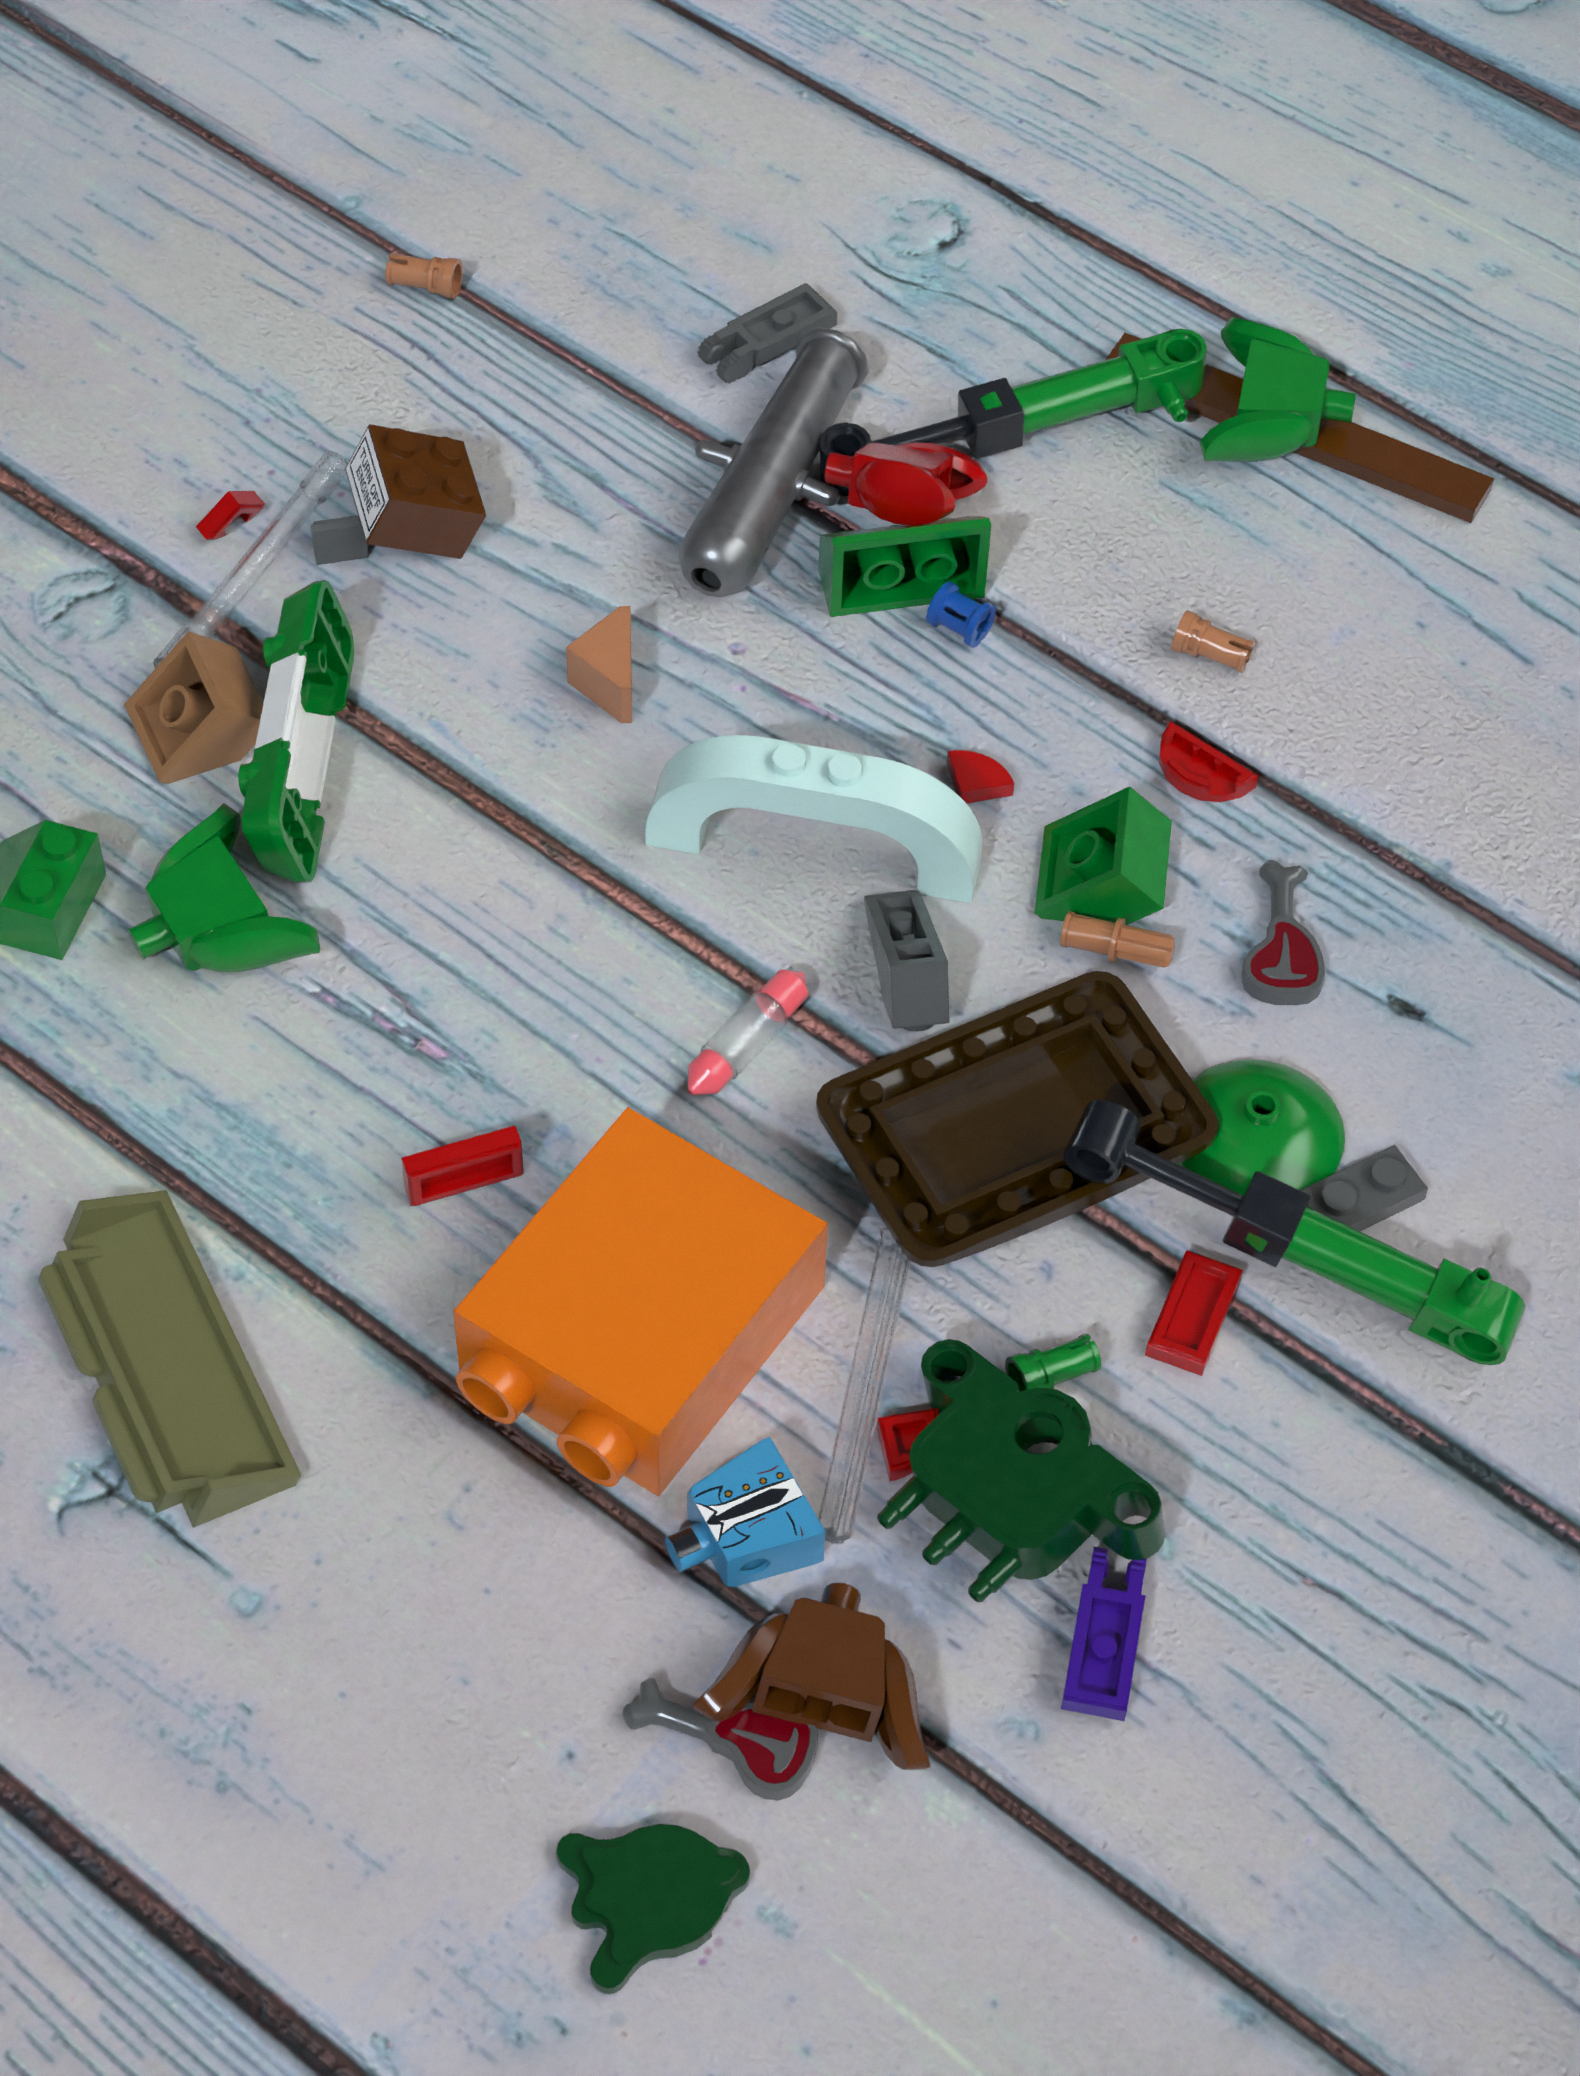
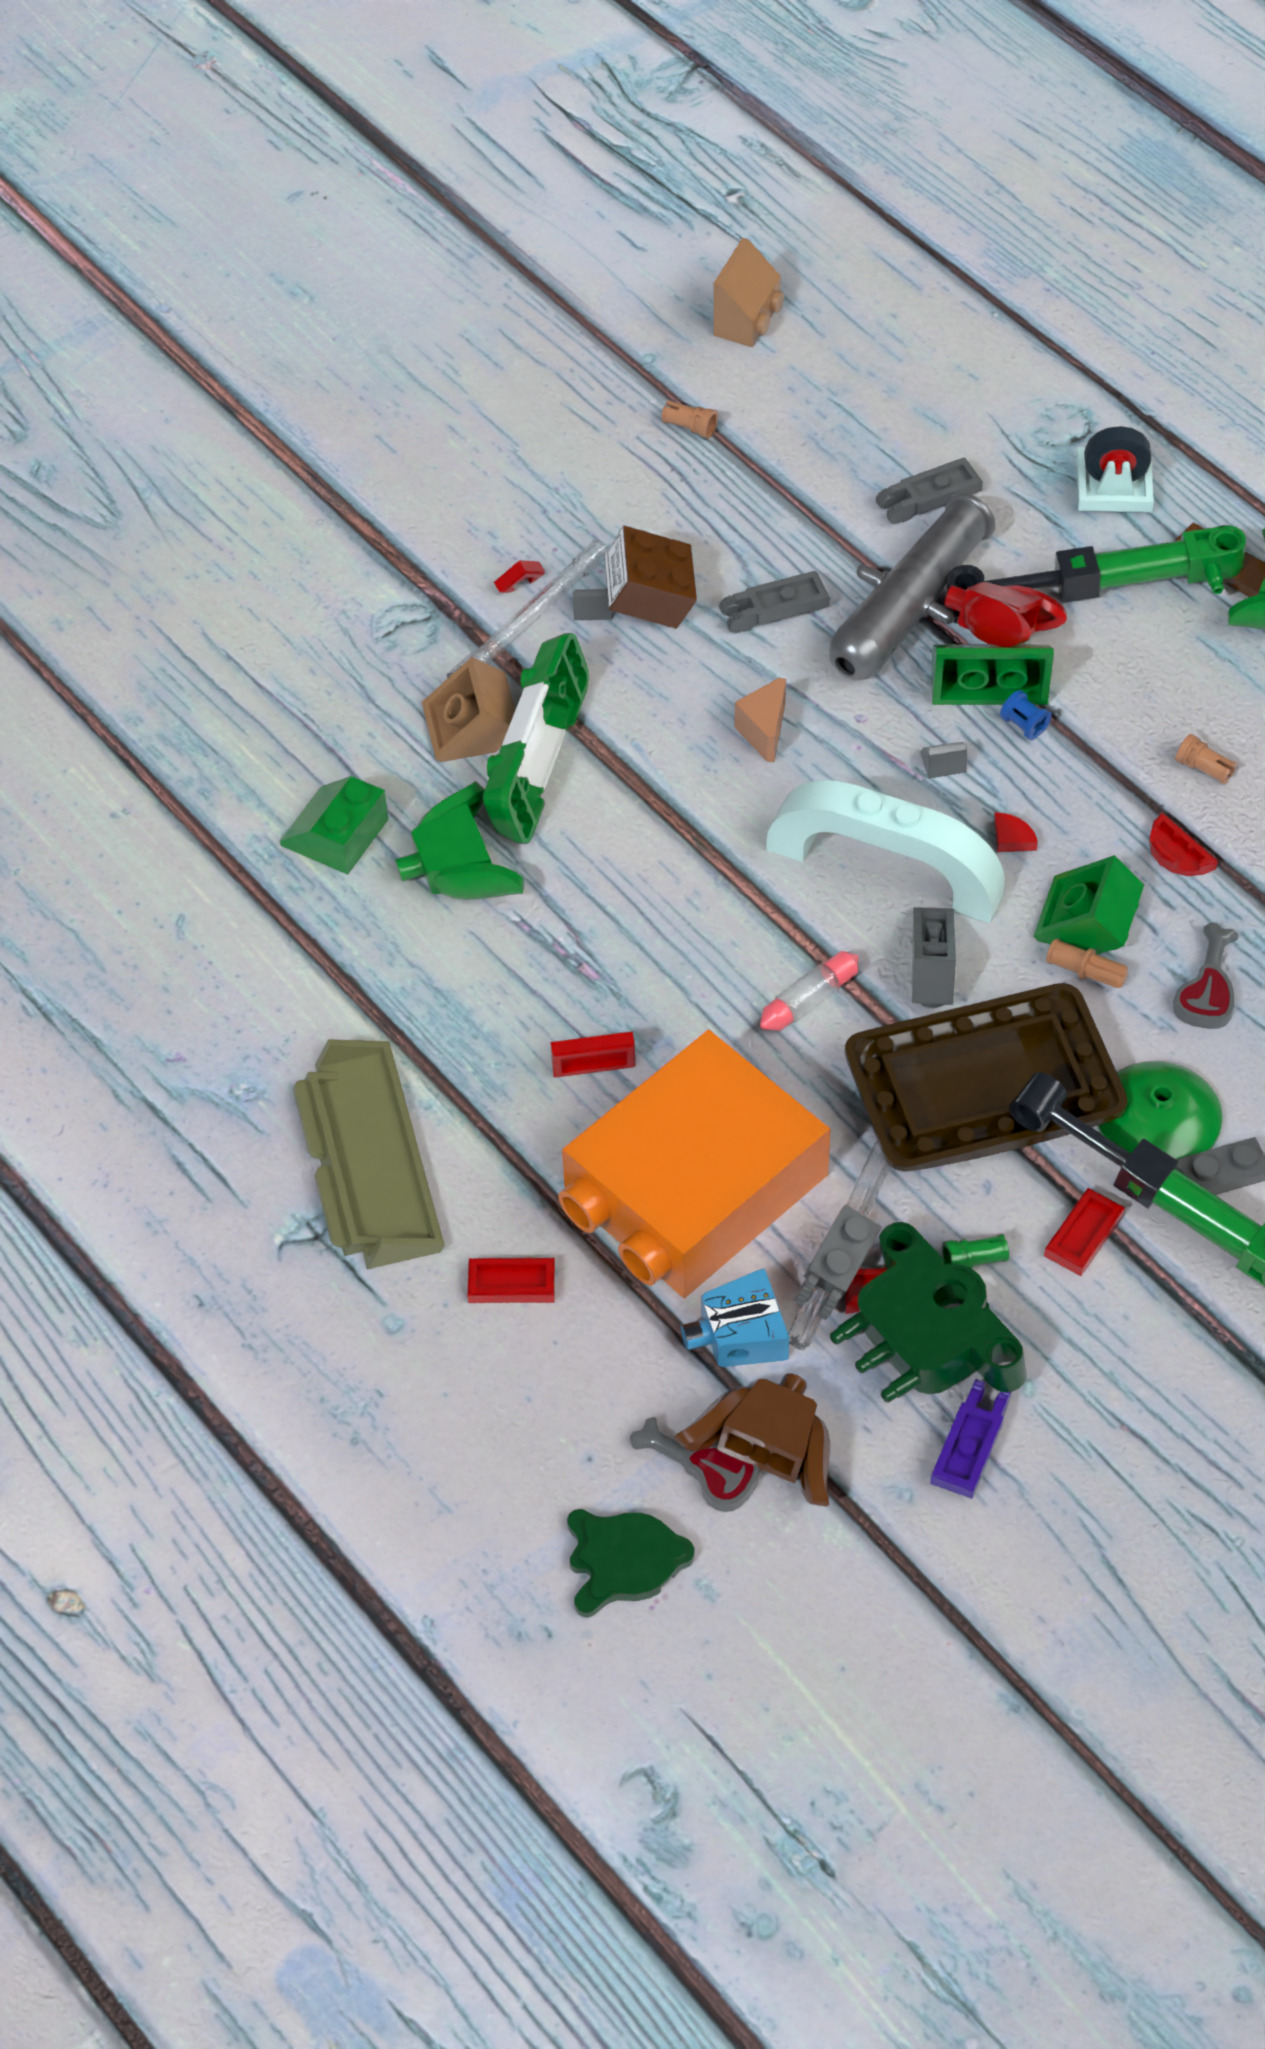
camera: 15 degrees right, 0 degrees up
(407, 1510) = (511, 1280): none -> red tile
(470, 104) = (746, 295): none -> medium nougat slope
(589, 505) = (774, 601): none -> dark grey hinge
(864, 688) = (945, 759): none -> dark grey slope
(868, 1406) = (838, 1258): none -> dark grey hinge
(1010, 278) = (1115, 472): none -> plate

